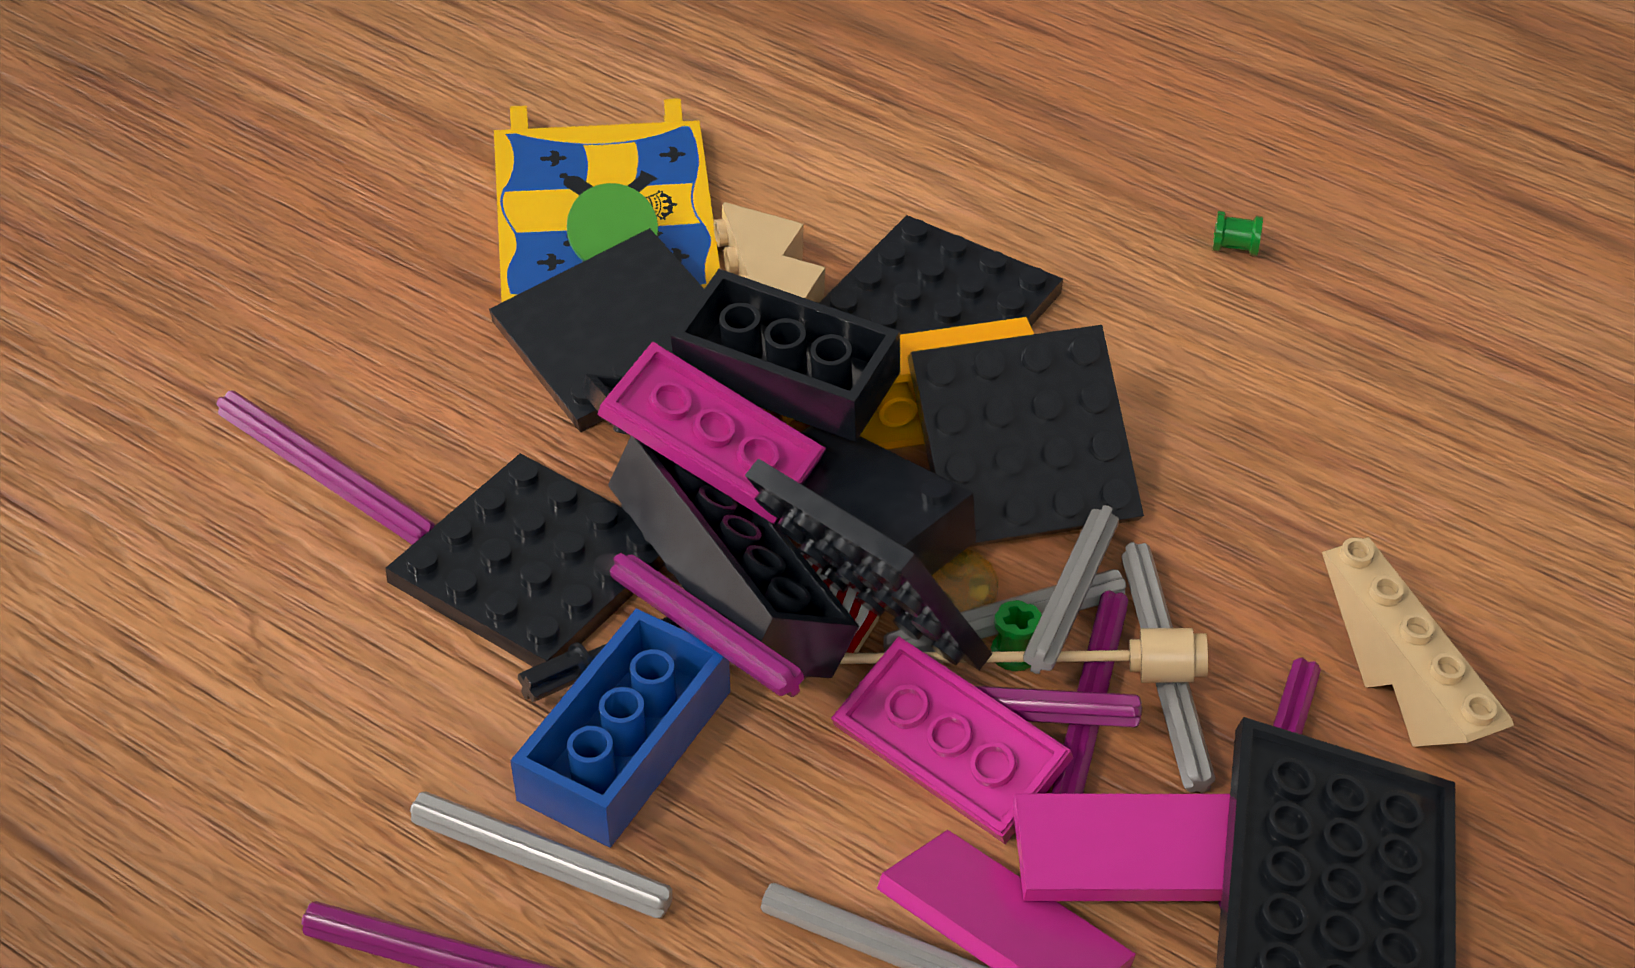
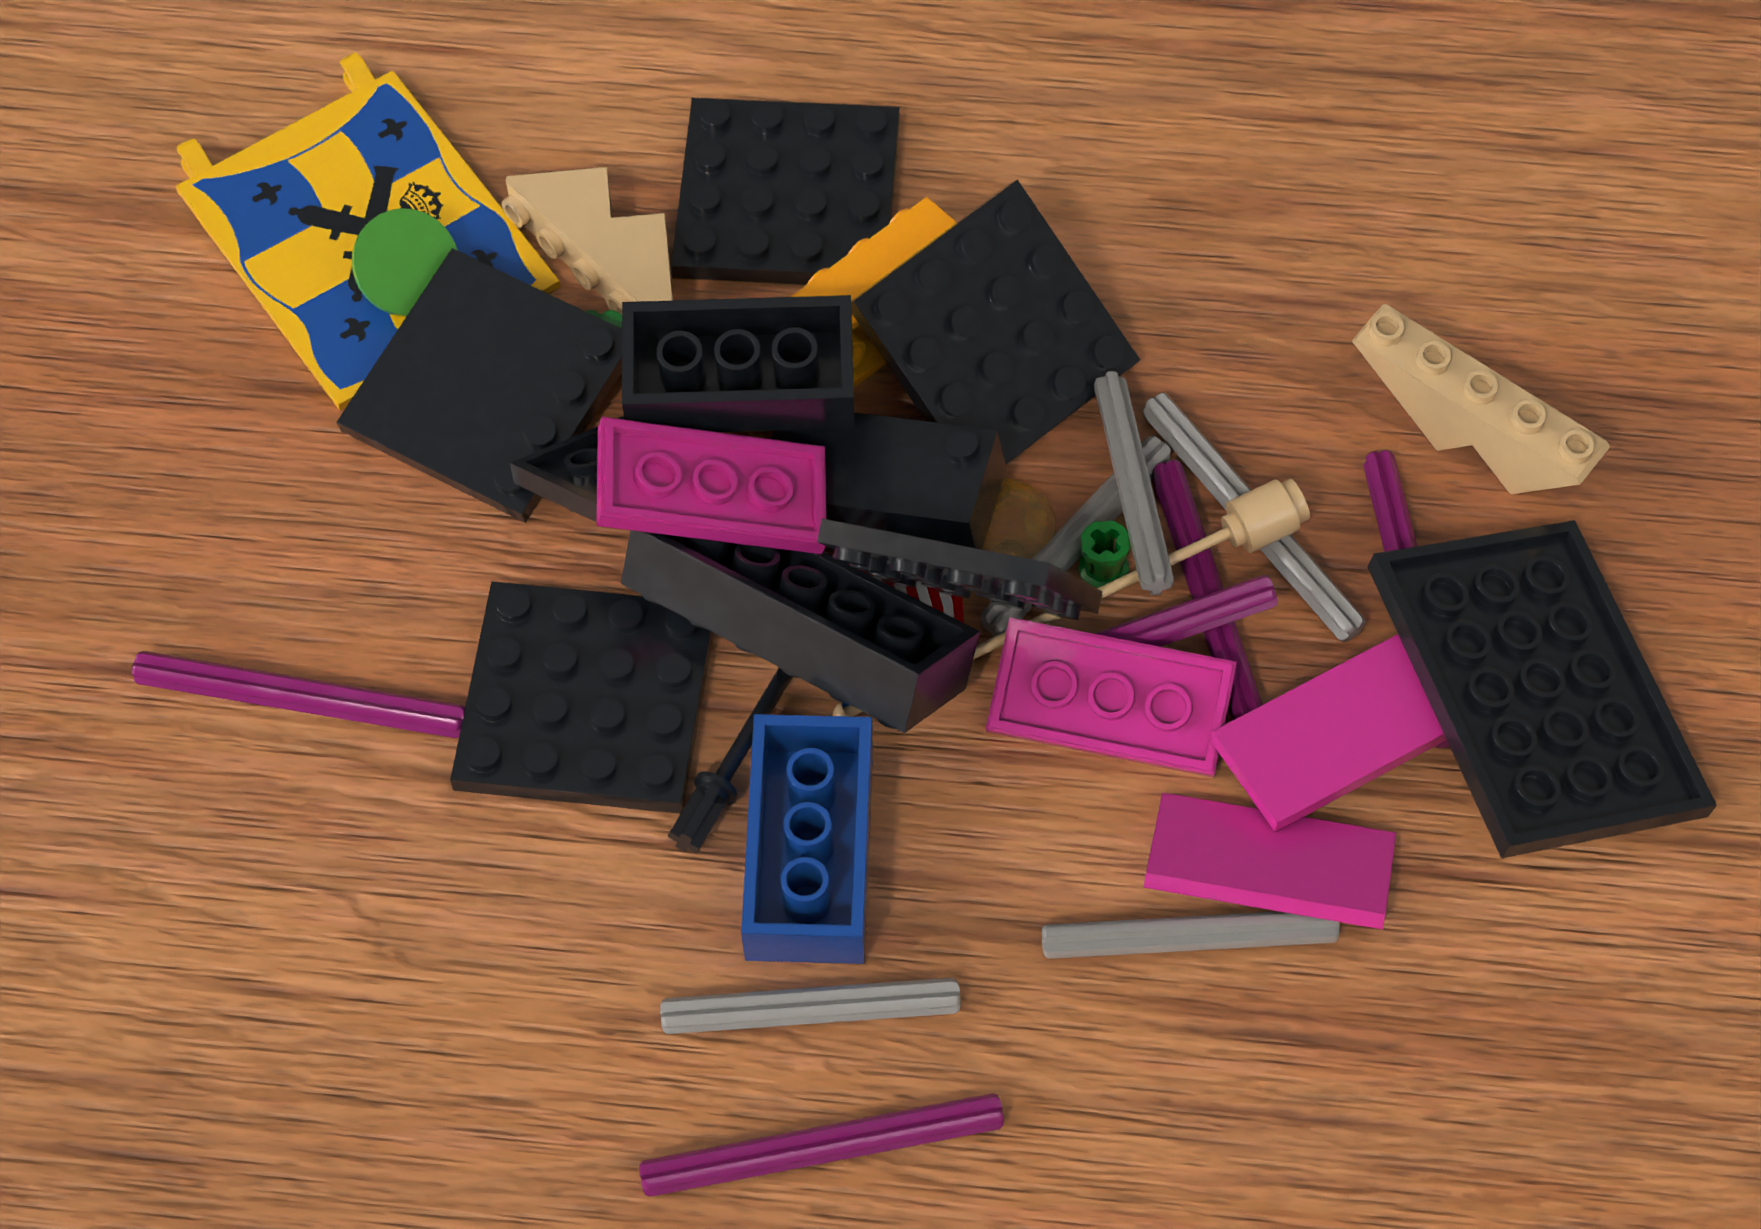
camera: 25 degrees left, 15 degrees up
(708, 625) = (836, 701): magenta axle -> none

